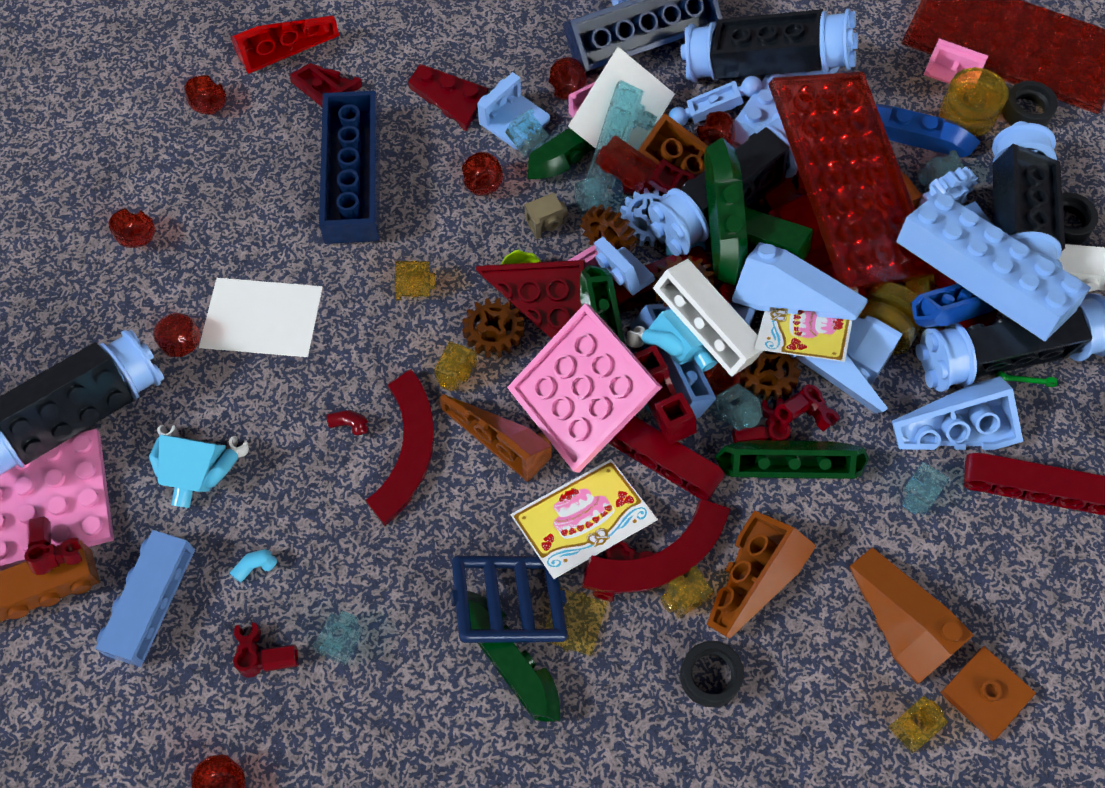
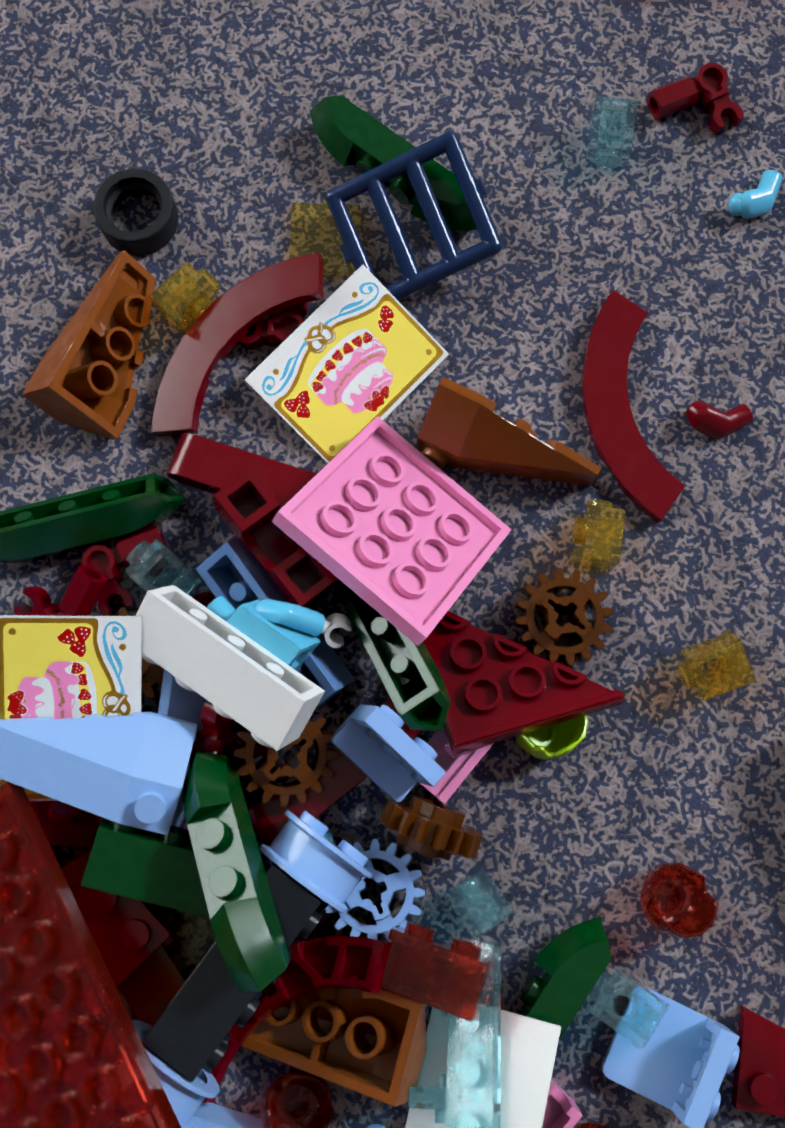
camera: 165 degrees right, 15 degrees up
(545, 214) = (546, 850): dark tan brick -> none

